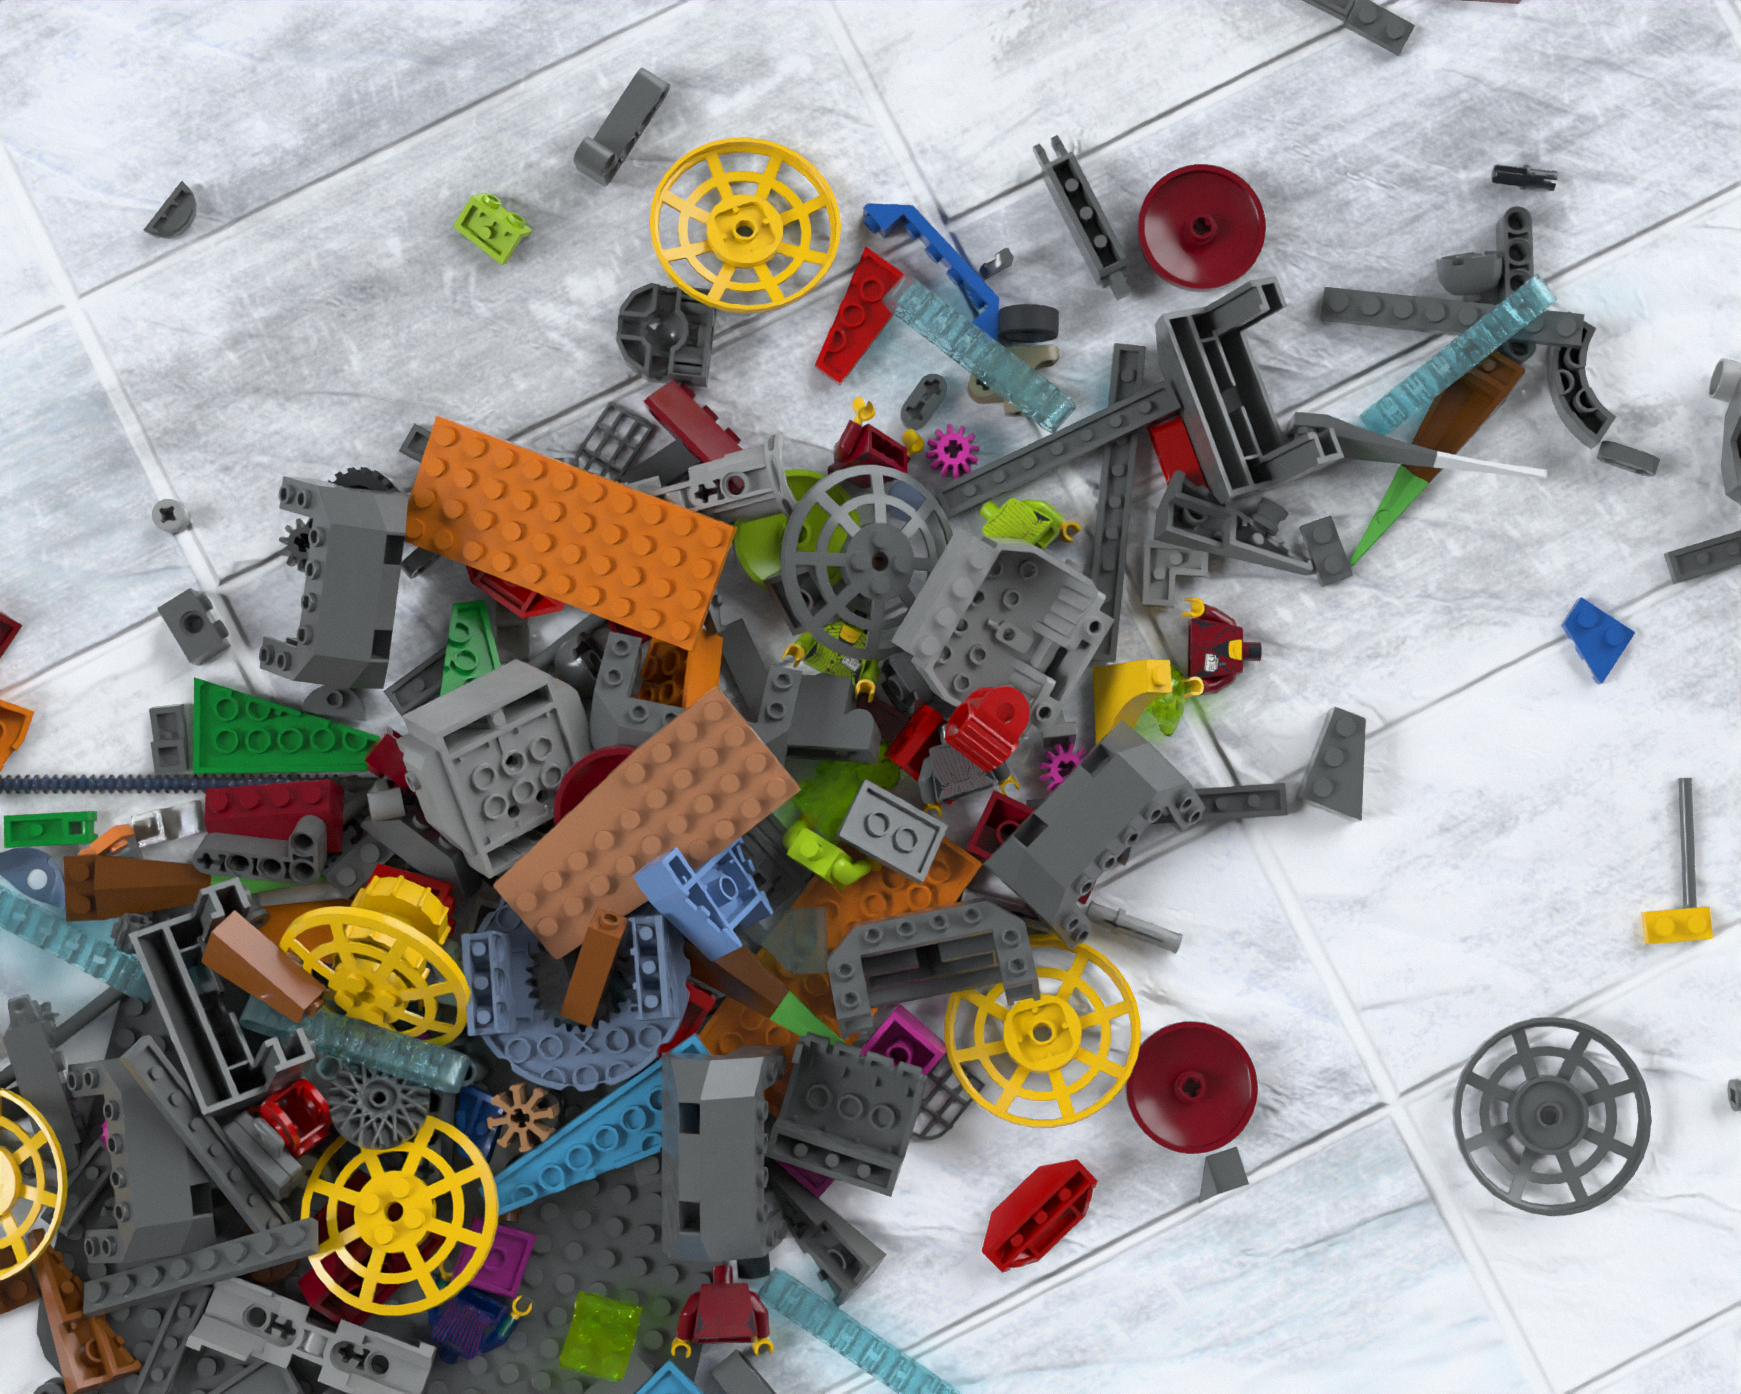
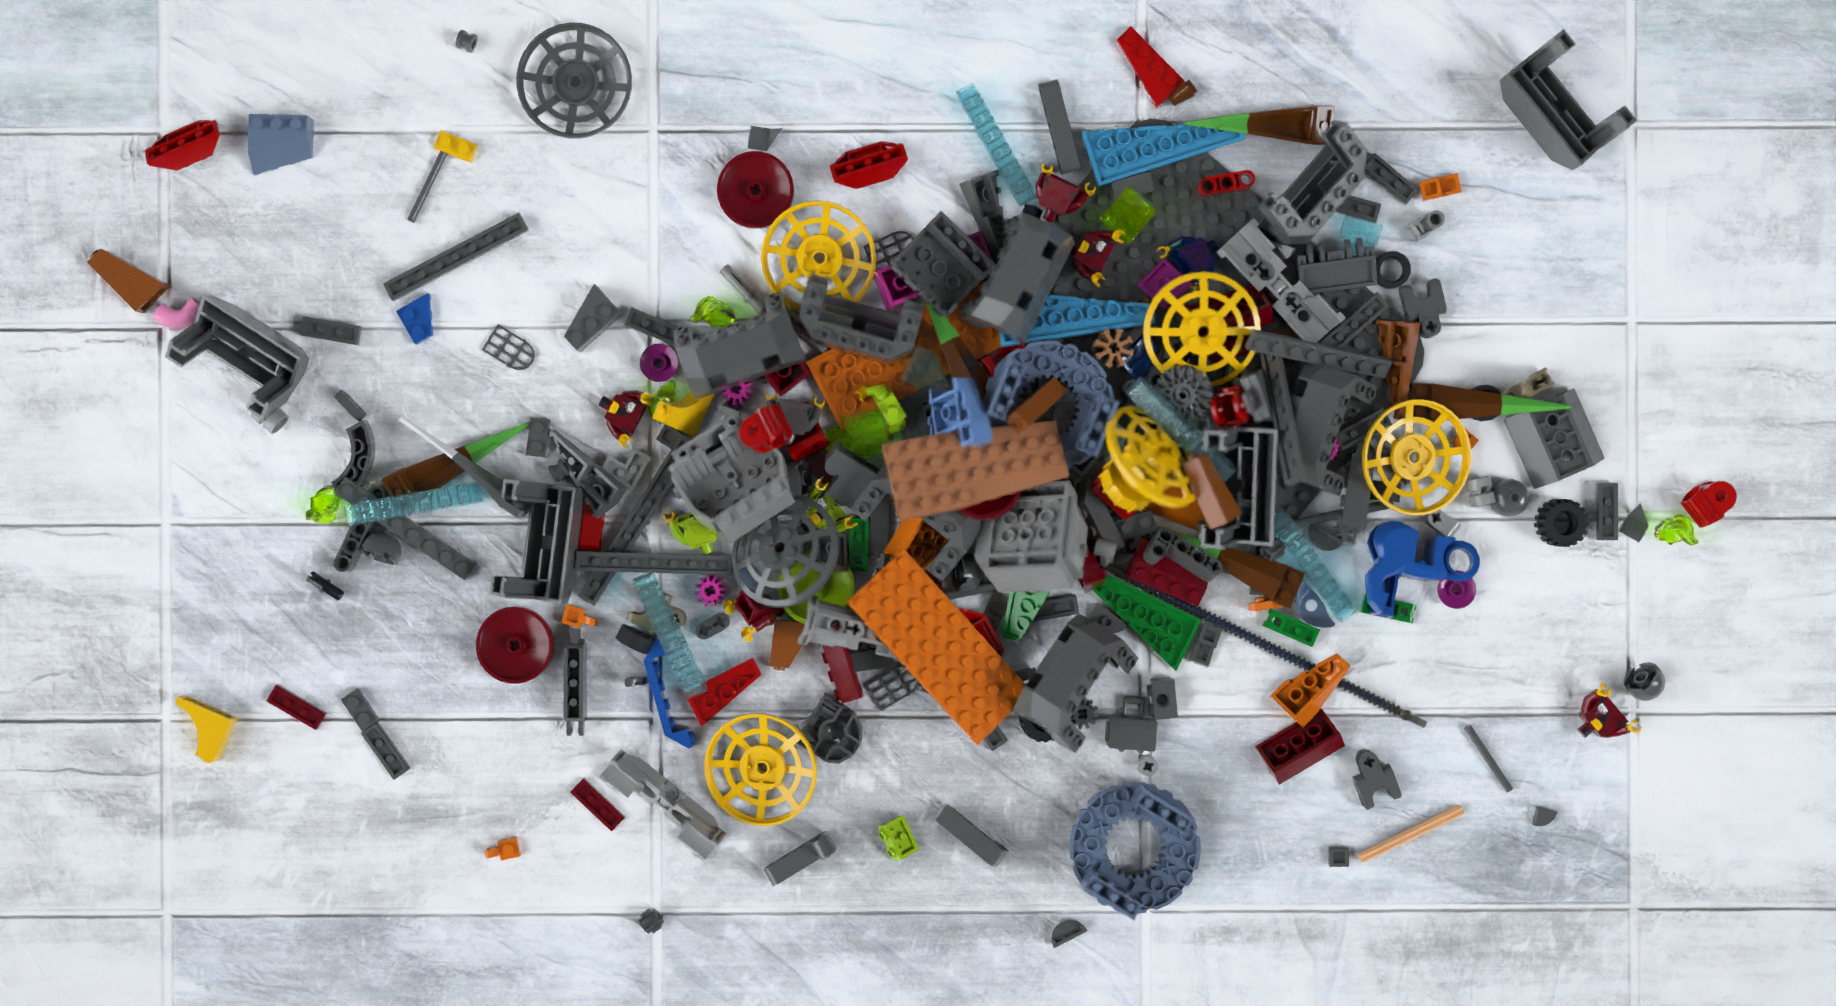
camera: 155 degrees left, 5 degrees up
(64, 987) = (1323, 539): none -> dark grey plate
(71, 339) = (1150, 889): none -> sand blue piece
(168, 823) = (1227, 599): clear smoke slope -> none
(218, 553) = (1131, 732): none -> dark grey piece
(383, 282) = (972, 836): none -> dark grey beam
(626, 1251) = (1093, 253): none -> torso
(764, 628) = (859, 544): none -> green plate
(794, 99) = (633, 774): none -> light grey piece
(802, 429) = (785, 643): none -> dark orange slope
(891, 831) = (845, 401): plate -> none
(960, 60) = (597, 804): none -> dark red tile
(1132, 647) = (668, 436): none -> dark grey tile
(1133, 314) = (576, 616): none -> orange plate
(1160, 868) = (713, 312): none -> clear neon green hair
(1218, 744) = (649, 360): none -> magenta dish
(1446, 654) = (506, 340): none -> dark grey window
(1588, 758) = (456, 257): none -> dark grey plate
(1589, 290) = (324, 506): none -> clear neon green hair

